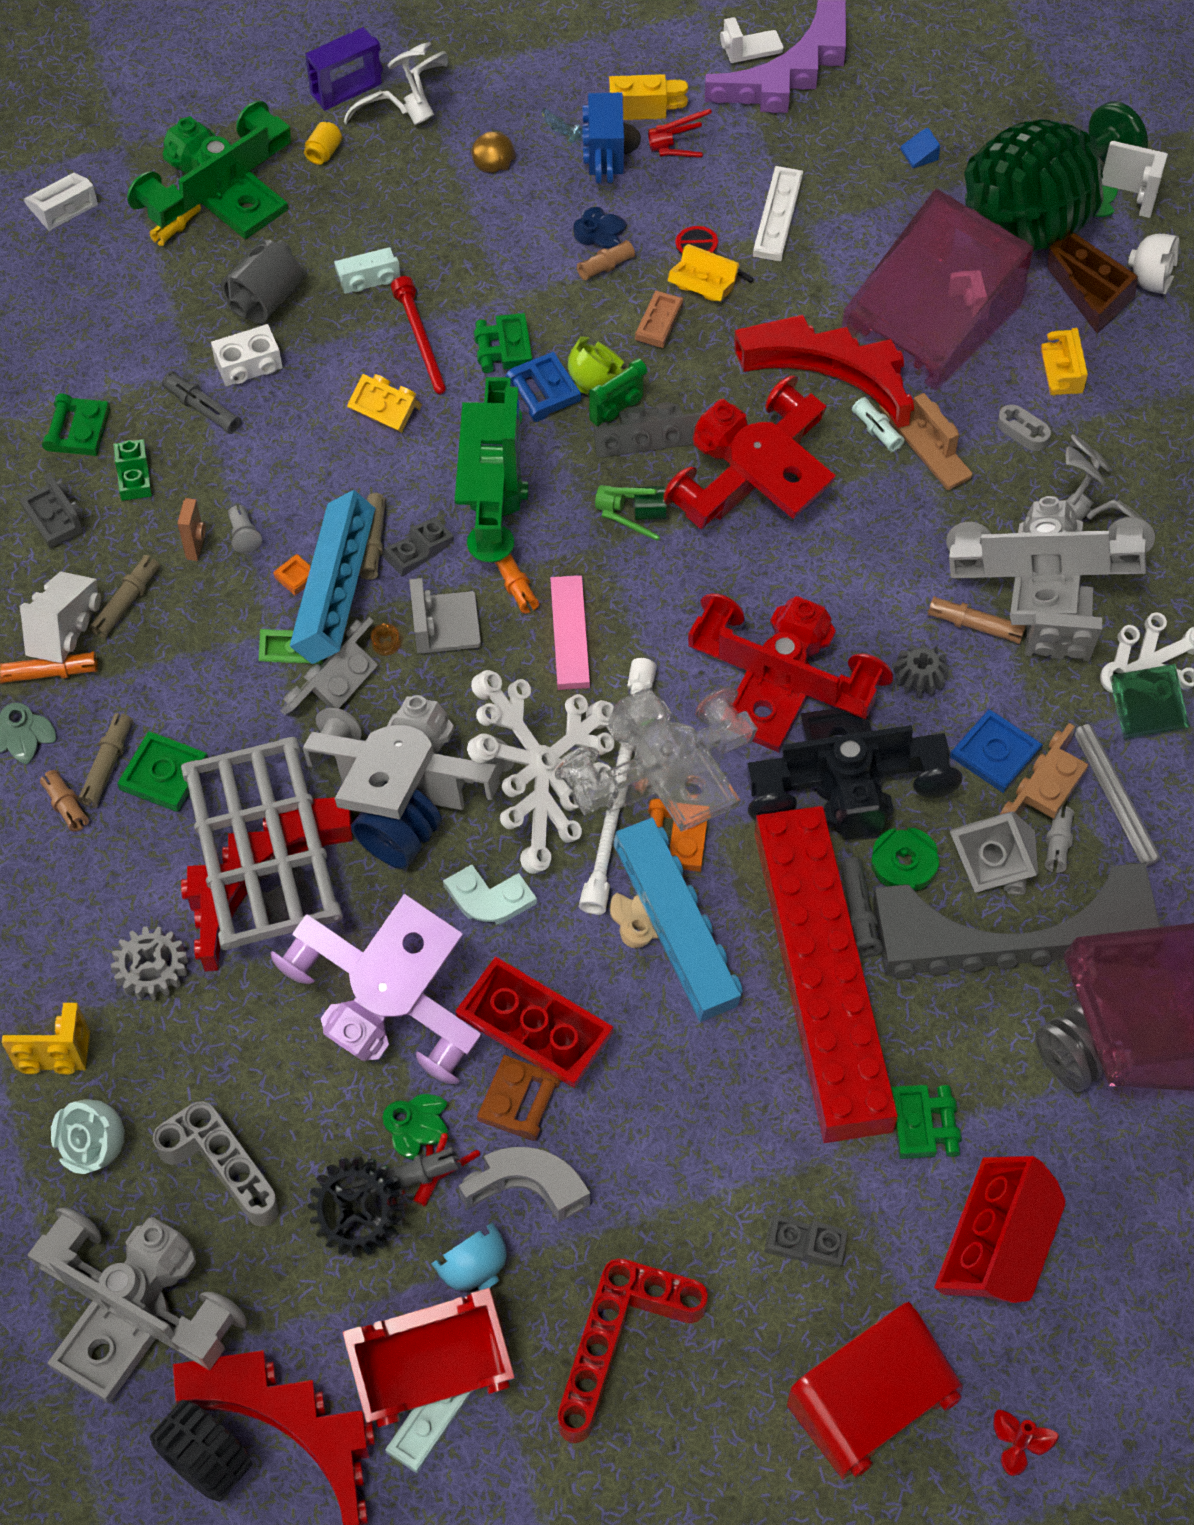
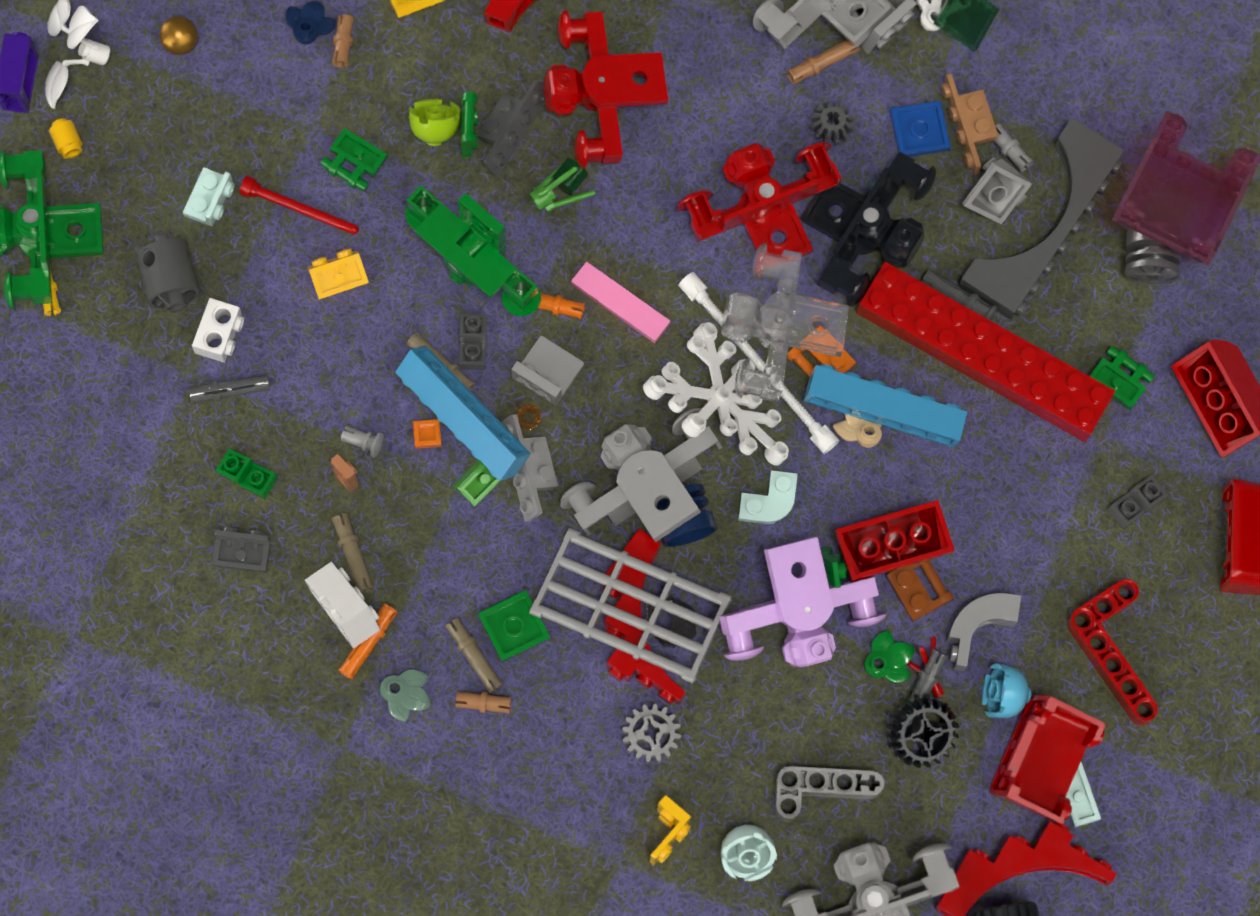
camera: 55 degrees left, 15 degrees up
(85, 429) = (180, 477): green plate -> none
(456, 988) = (834, 568): none -> green slope
(551, 380) = (416, 156): blue plate -> none
(659, 319) = (423, 48): nougat plate -> none
(905, 842) = (958, 233): green plate -> none
(1117, 795) = (1008, 90): light grey axle -> none

